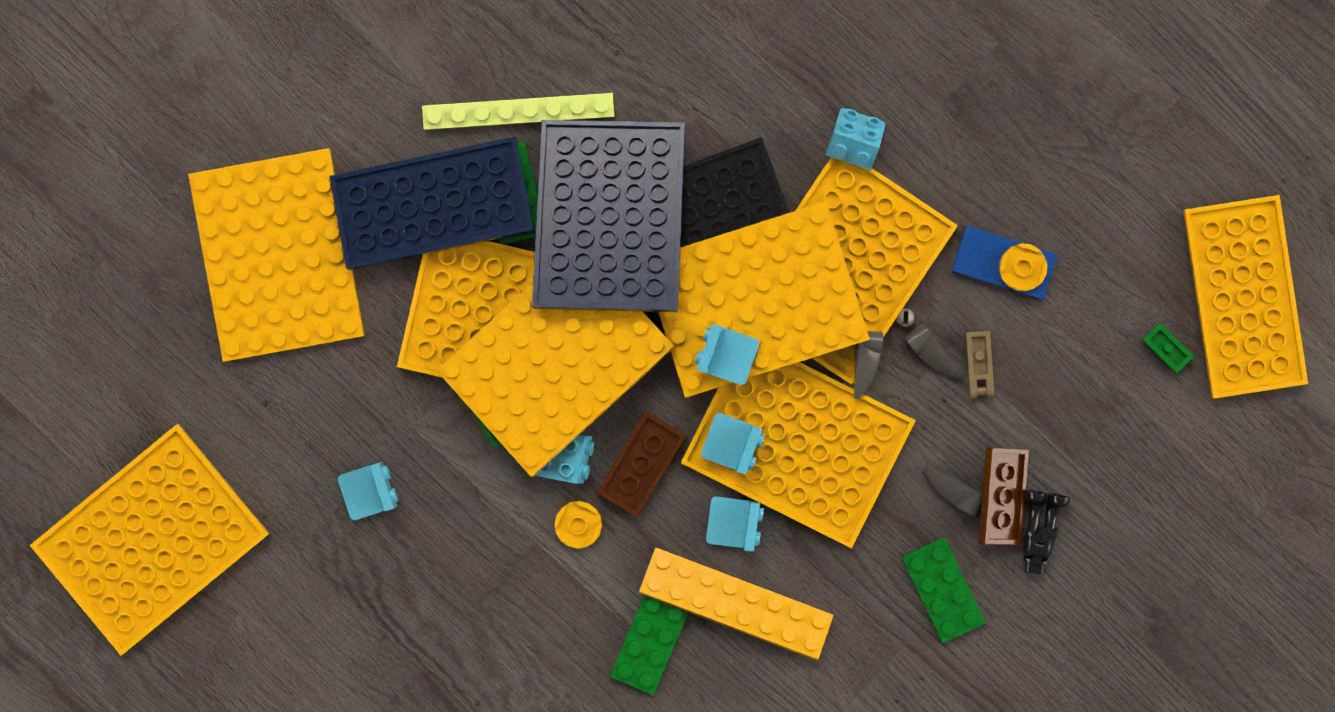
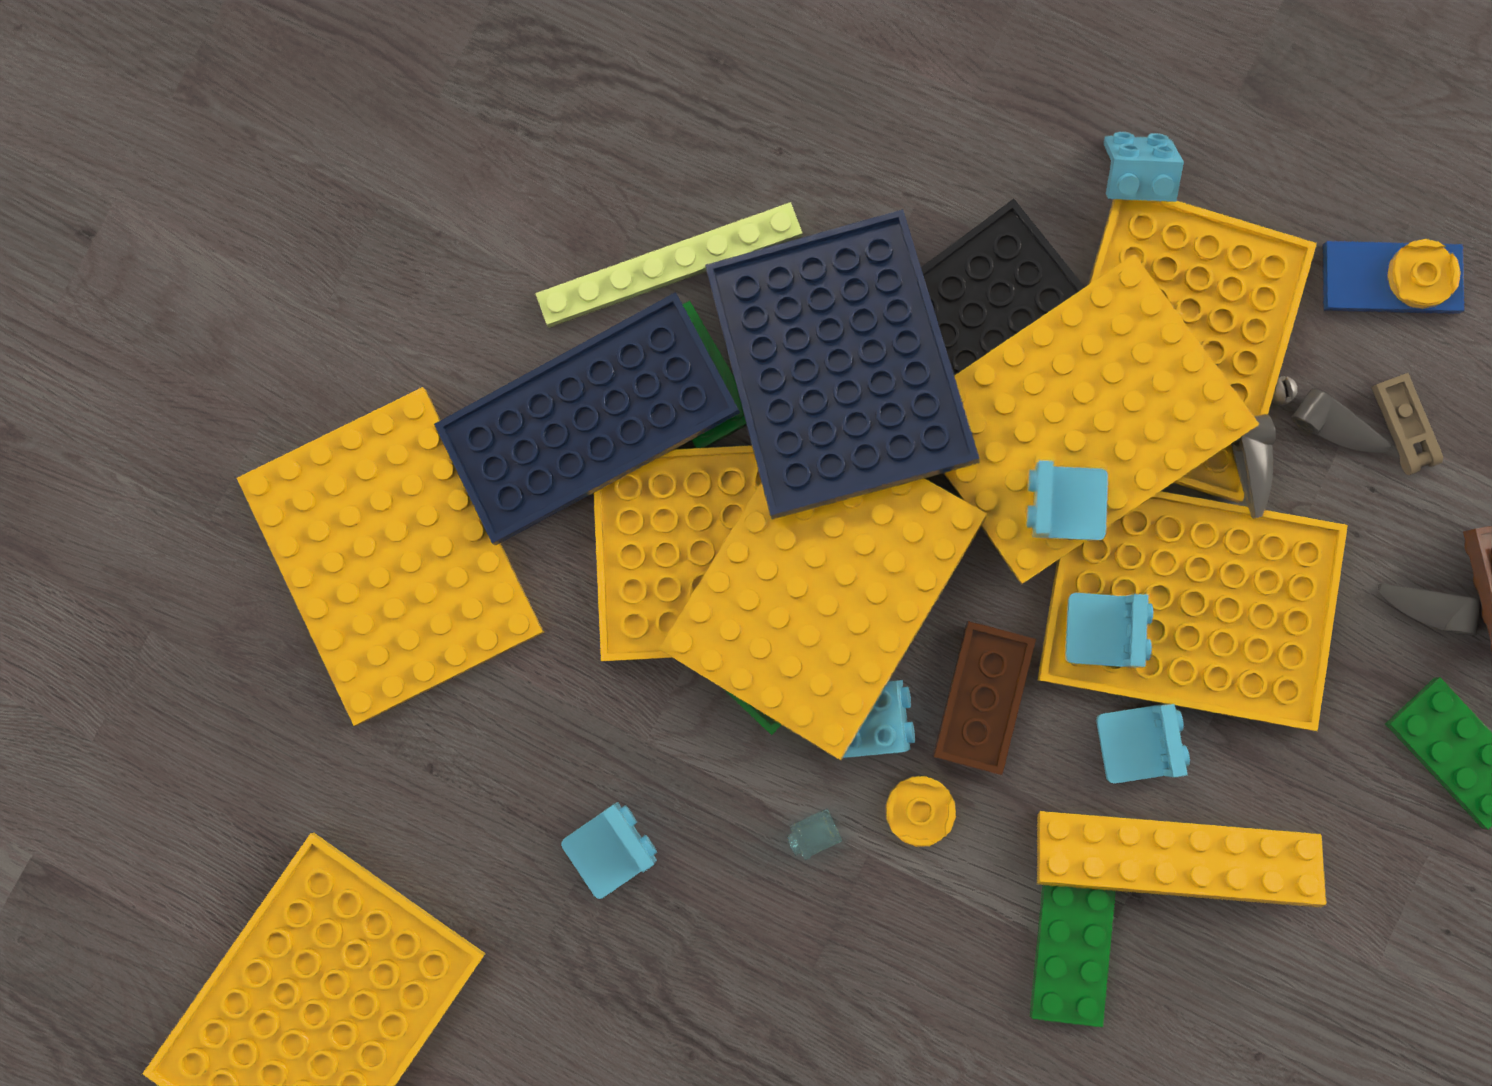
camera: 15 degrees left, 5 degrees down
(503, 519) = (813, 834): none -> clear light blue bracket

